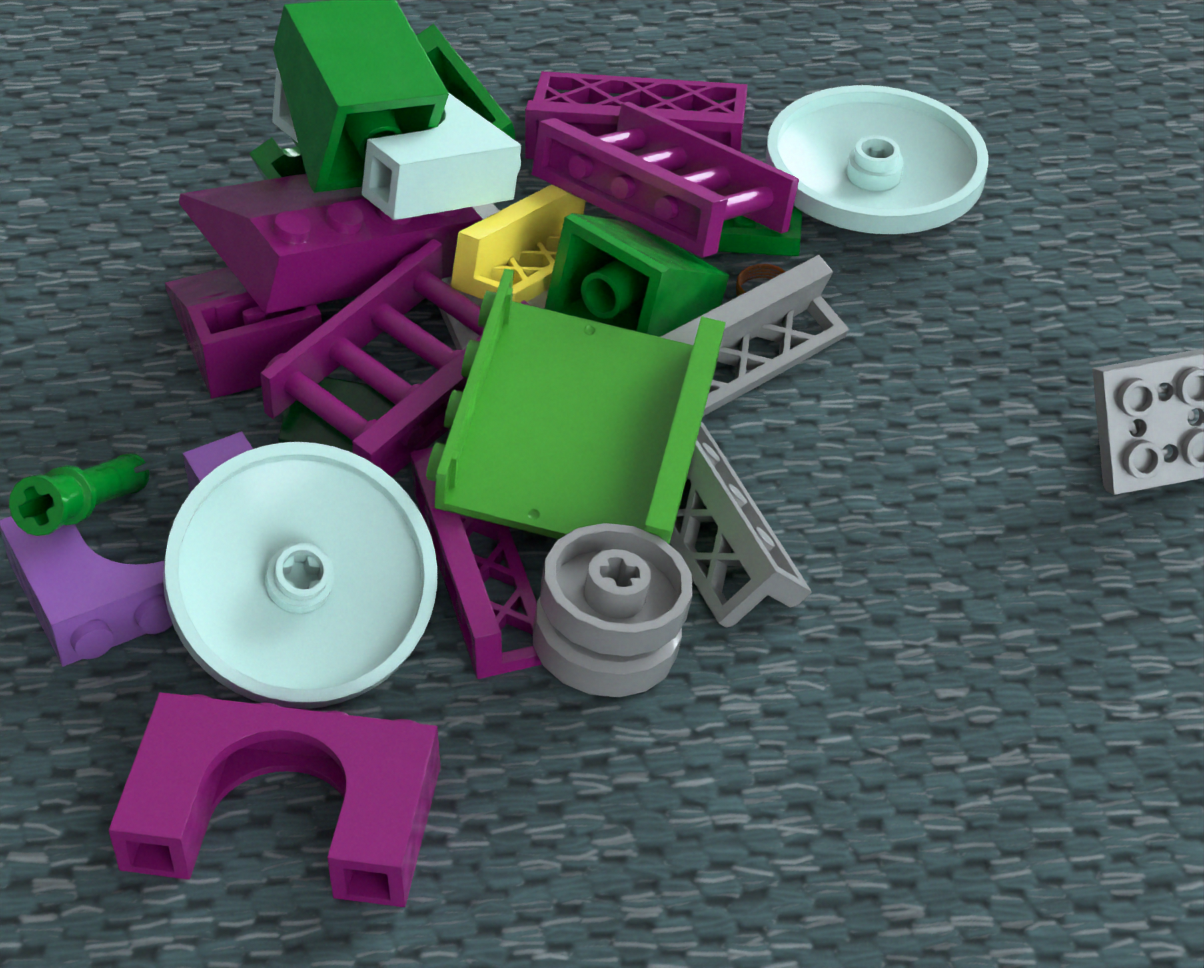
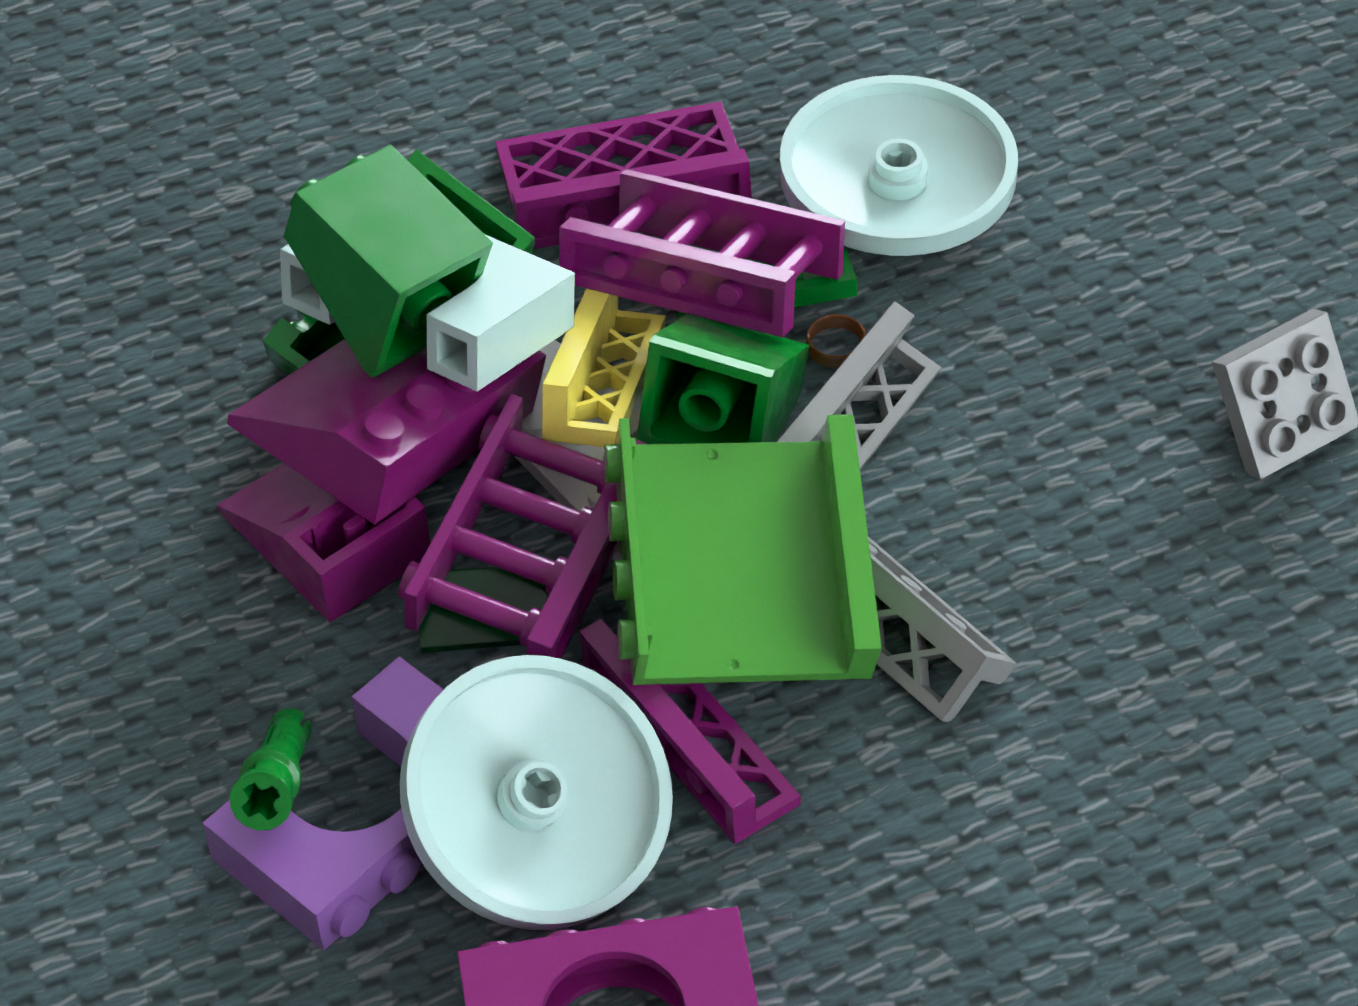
camera: 15 degrees left, 5 degrees up
(611, 609) = (846, 740): light grey wheel -> none

